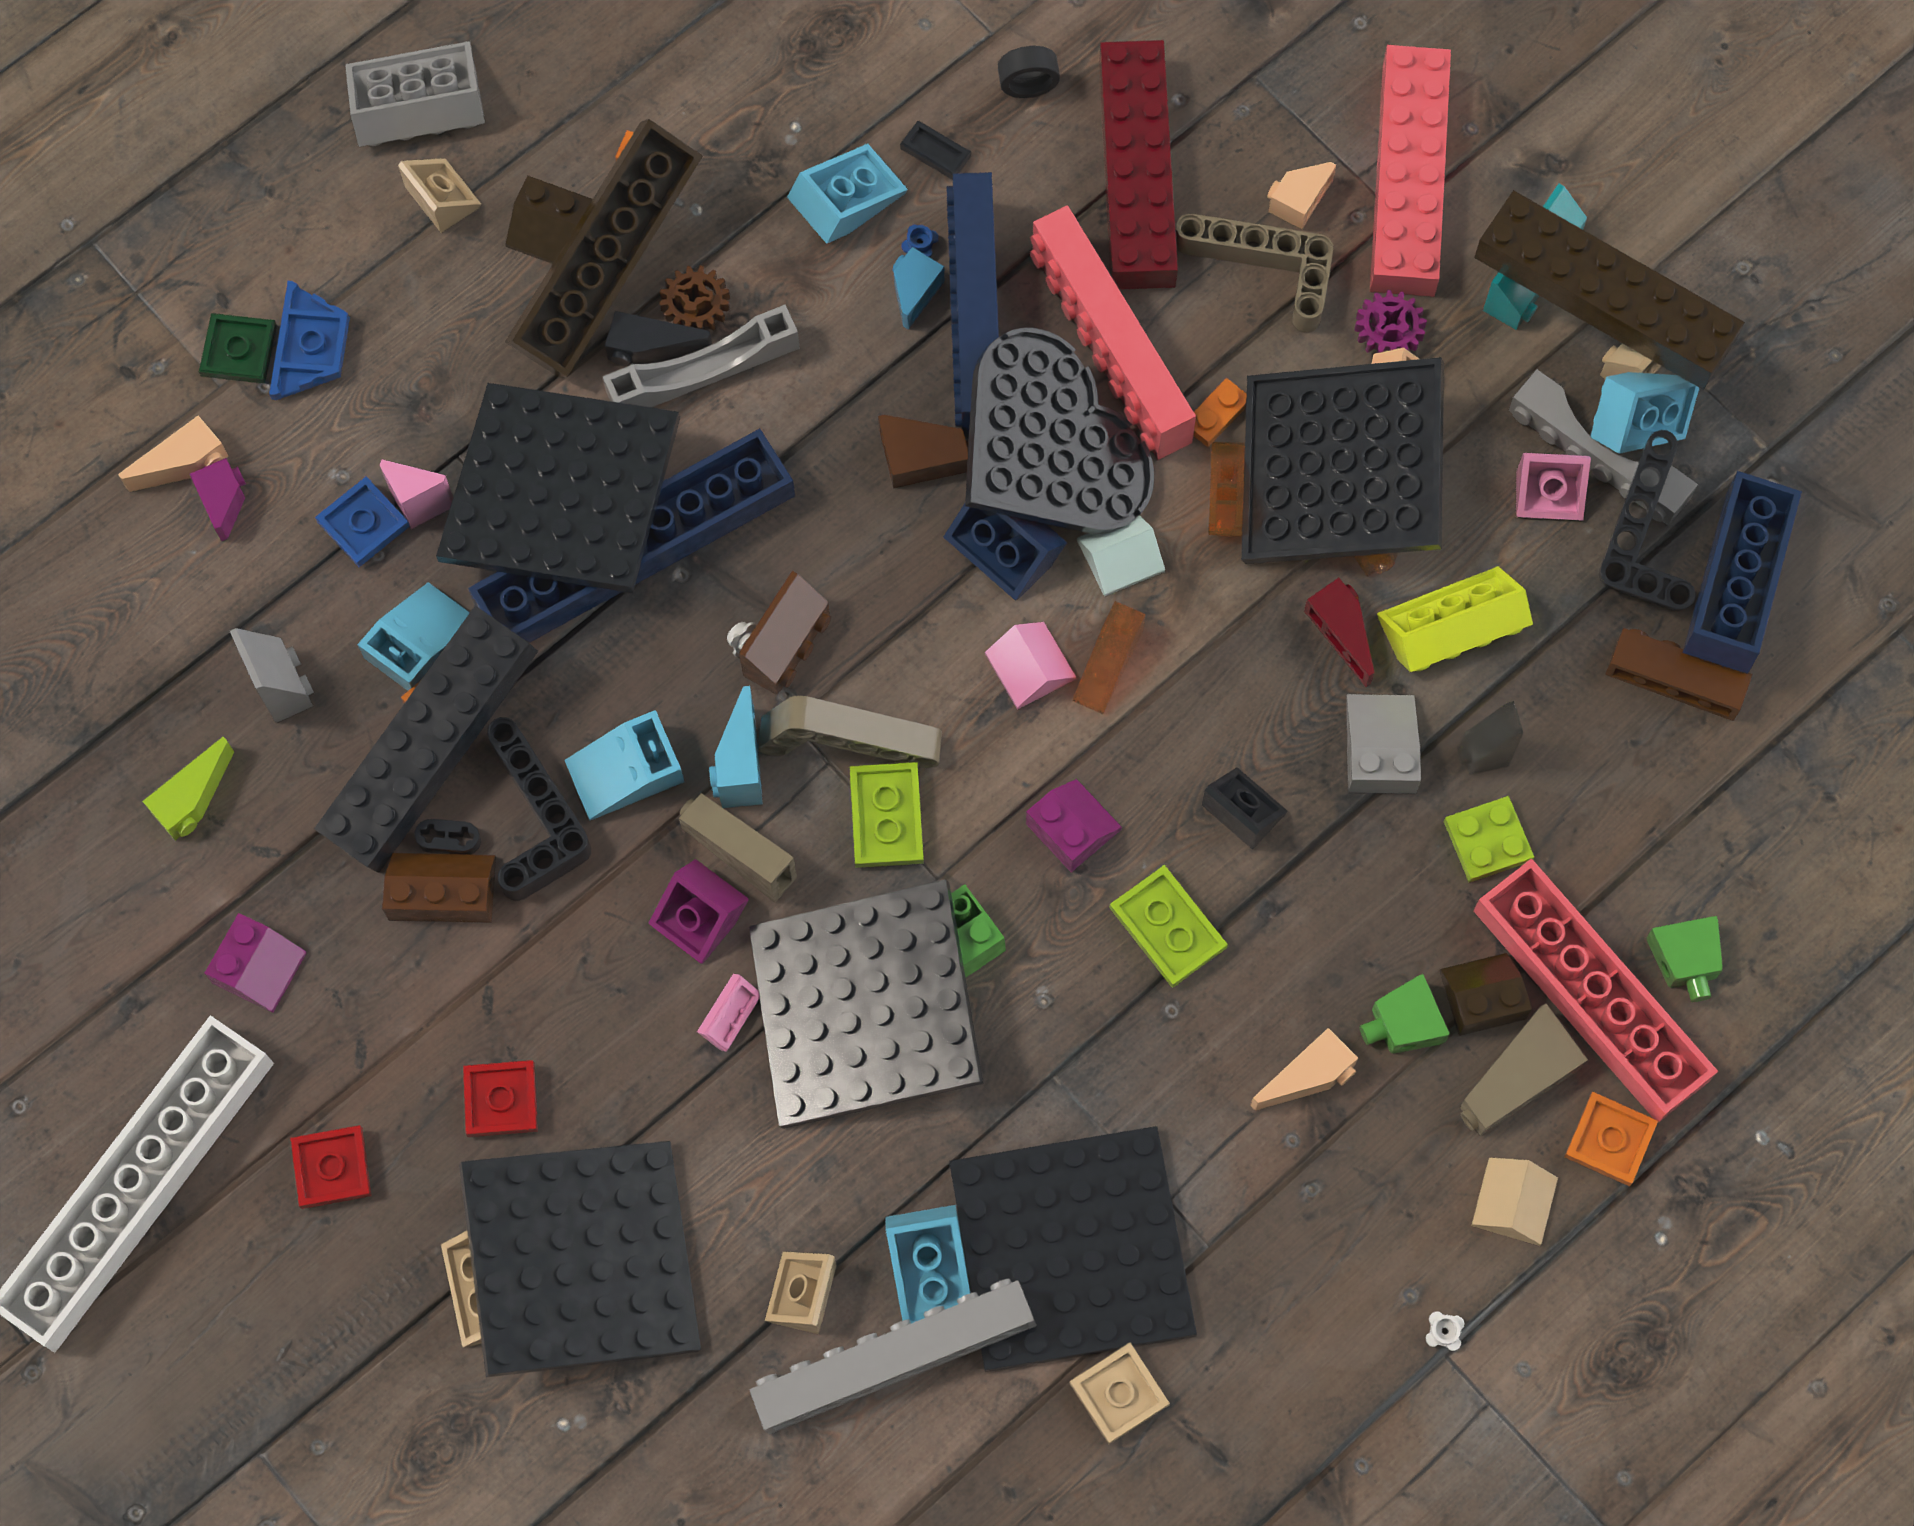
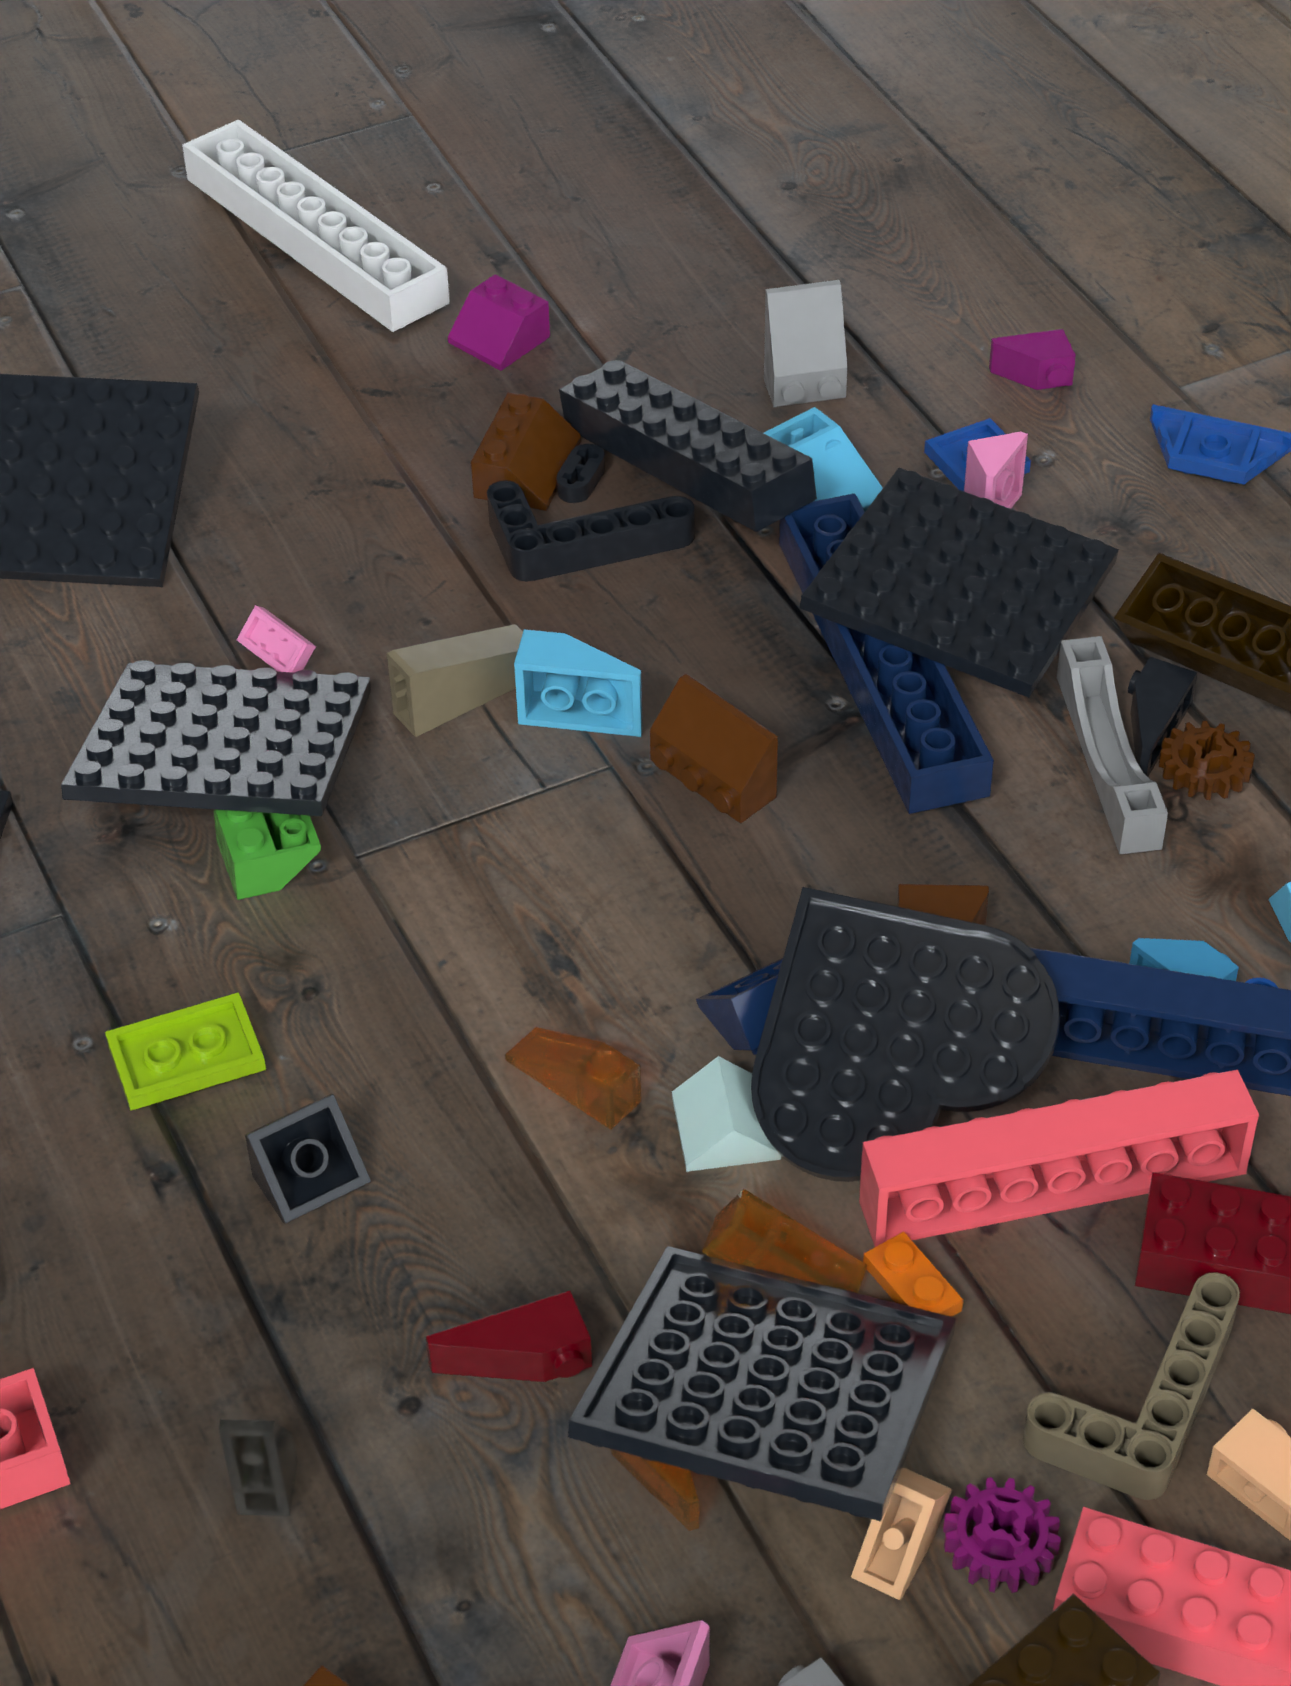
camera: 105 degrees right, 25 degrees down
(175, 458) = (1097, 341): light nougat slope -> none
(187, 795) = (703, 305): lime slope -> none
(237, 348) = (1224, 395): dark green tile -> none
(330, 1167) = (264, 349): red plate -> none
(500, 1098) = (272, 467): red plate -> none
(624, 766) = (605, 609): medium azure slope -> none
(697, 910) = (416, 626): magenta slope -> none
(847, 728) = (575, 726): dark tan beam -> none
(886, 815) = (452, 815): lime plate -> none
(1029, 663) = (602, 996): bright pink slope -> none
(1071, 823) = (363, 980): magenta slope -> none
(1382, 744) = (329, 1347): light grey slope -> none
(1456, 619) = (483, 1491): neon yellow slope -> none
(1488, 839) = (136, 1451): lime plate -> none

